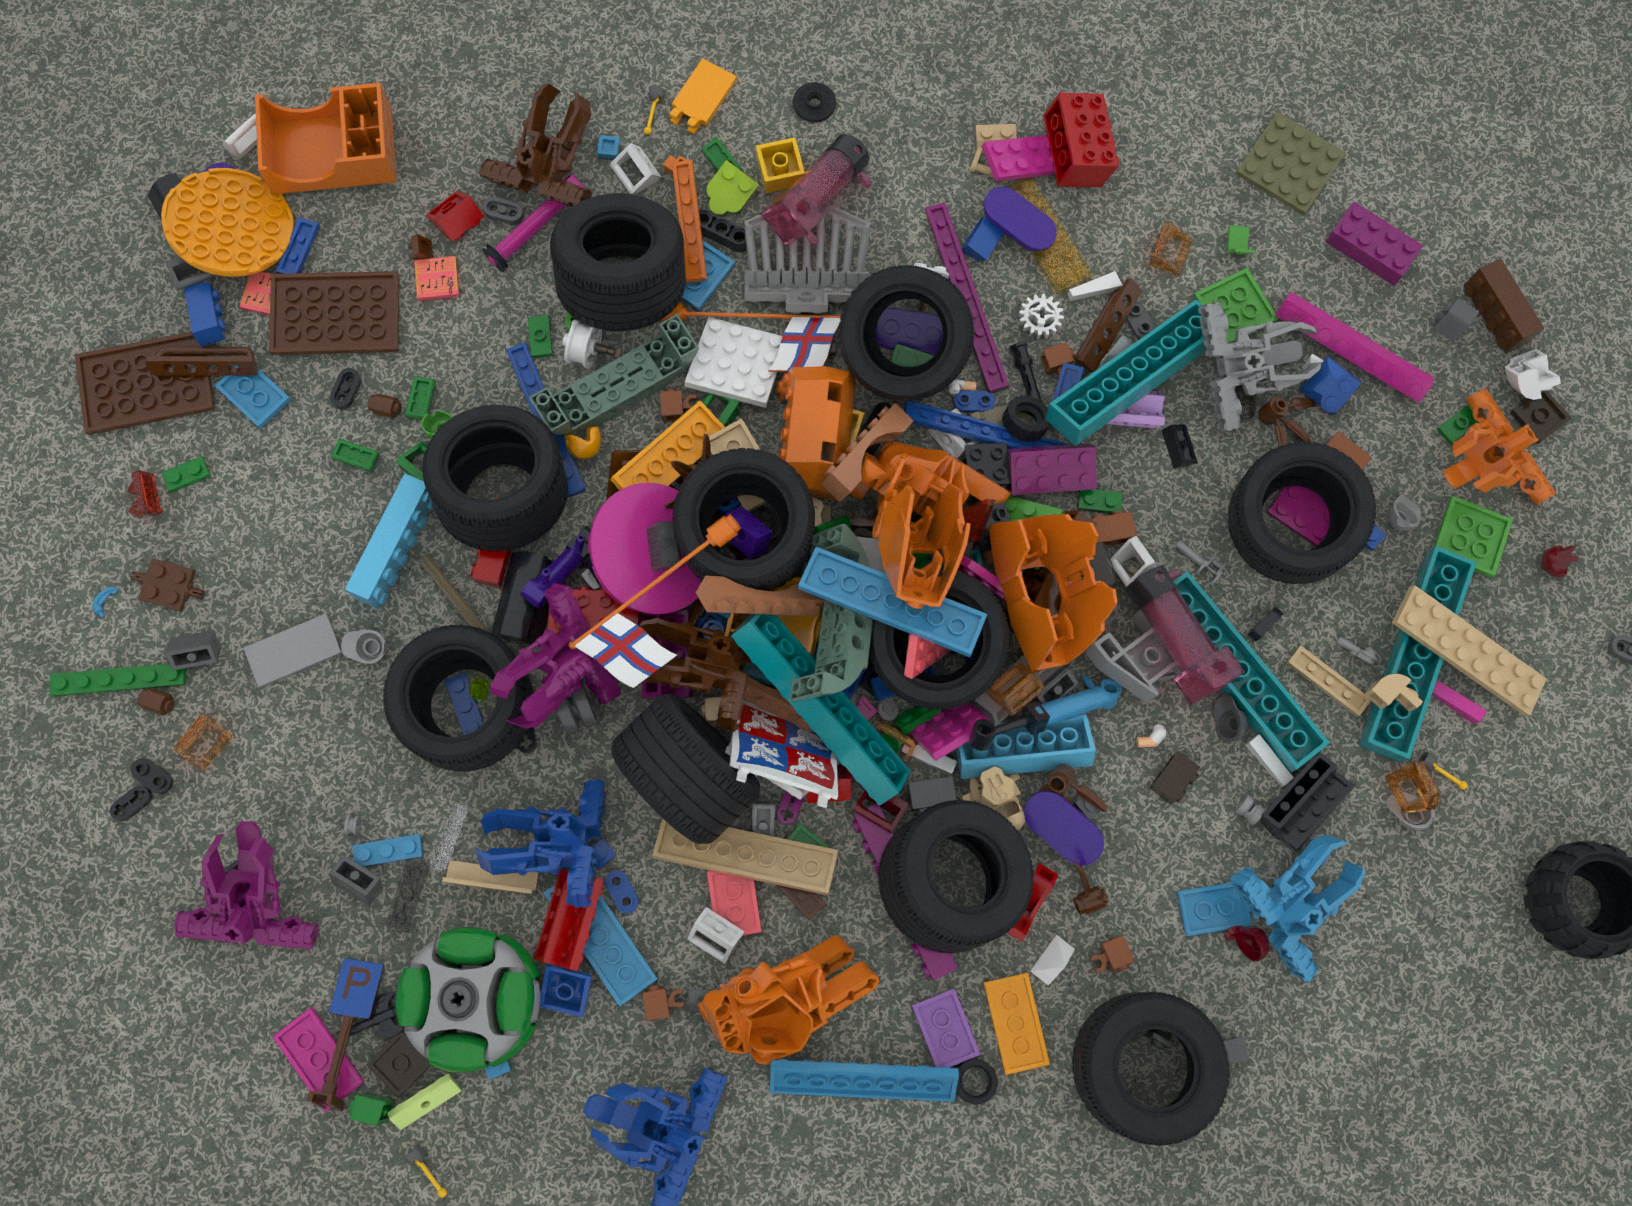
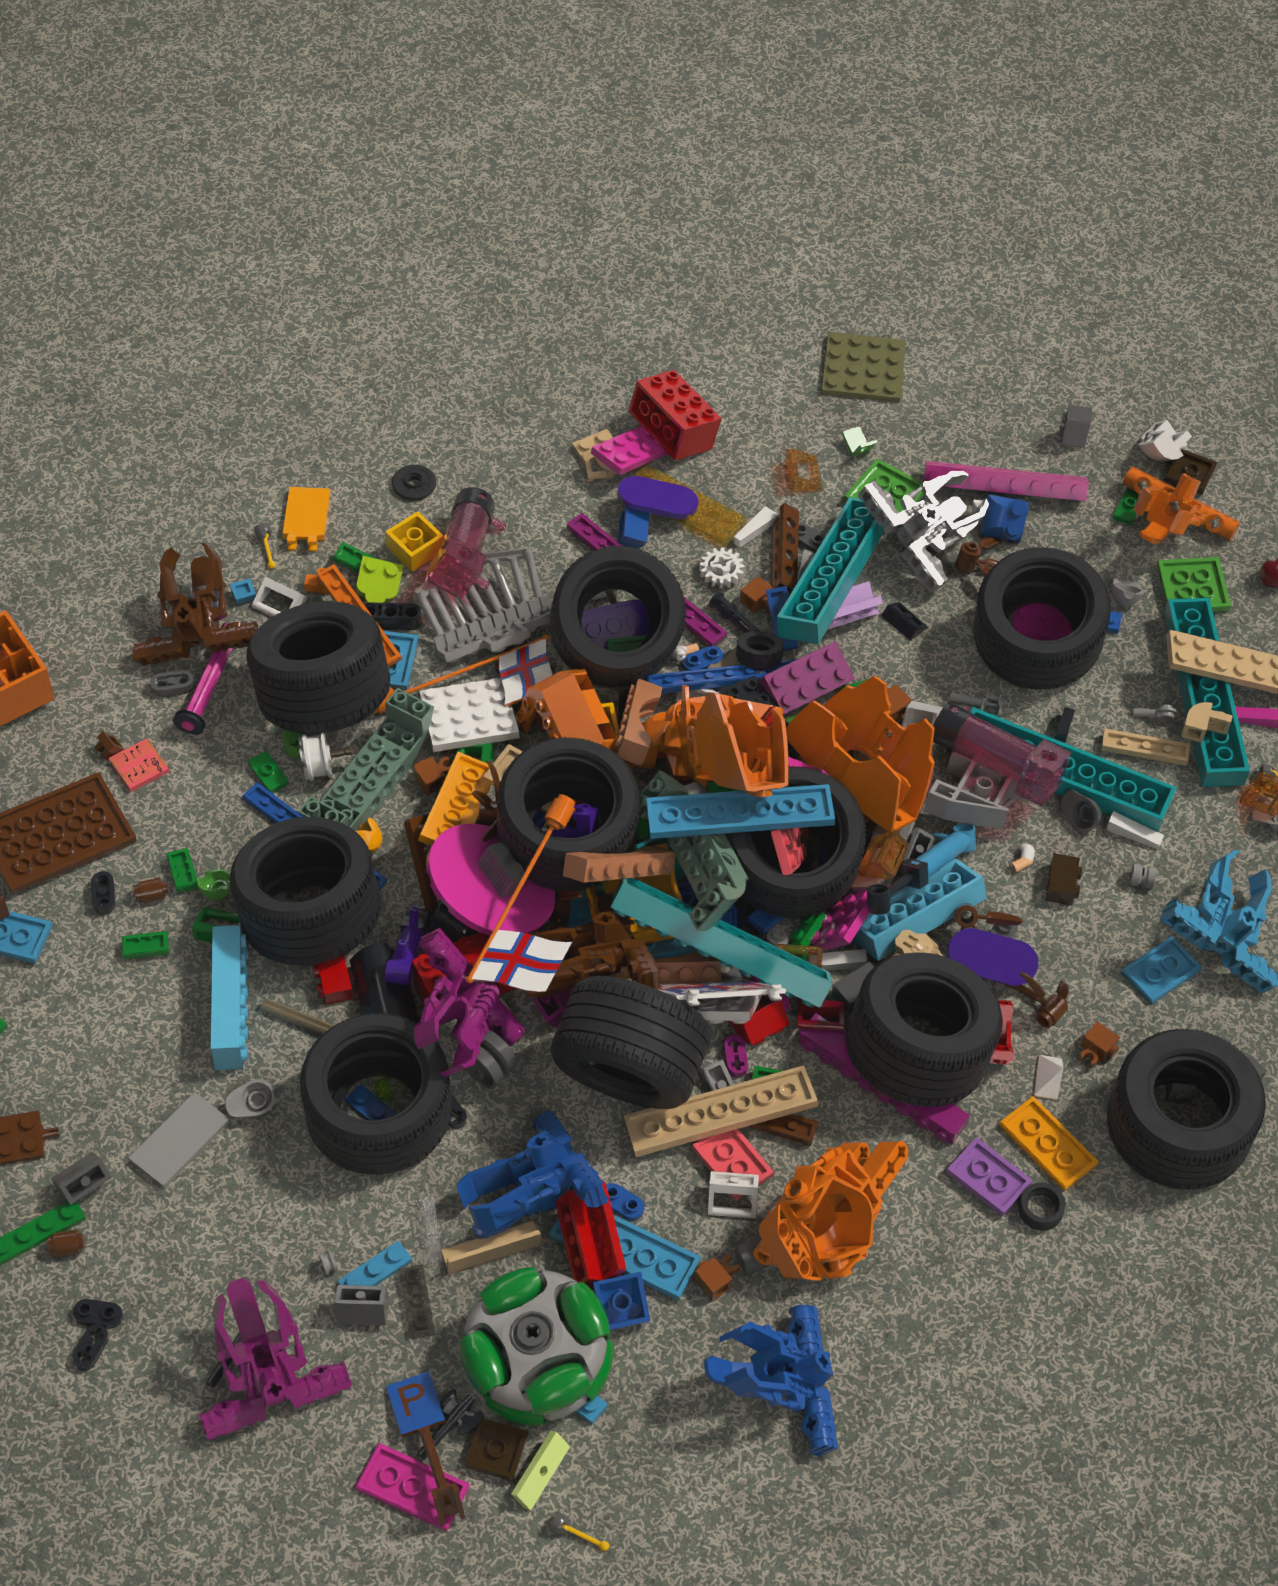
camera: 25 degrees left, 20 degrees down
(192, 734) = (124, 1240): clear orange tile -> none
(370, 1108) = (493, 1494): green brick -> none
(455, 215) = (128, 704): red slope -> none
(863, 1080) = (941, 1249): dark azure plate -> none
(1250, 941) = (1208, 979): dark red piece -> none
(1306, 802) = (1186, 846): black brick -> none
(1374, 243) = (972, 397): magenta brick -> none
(1503, 306) = (1110, 400): reddish brown brick -> none

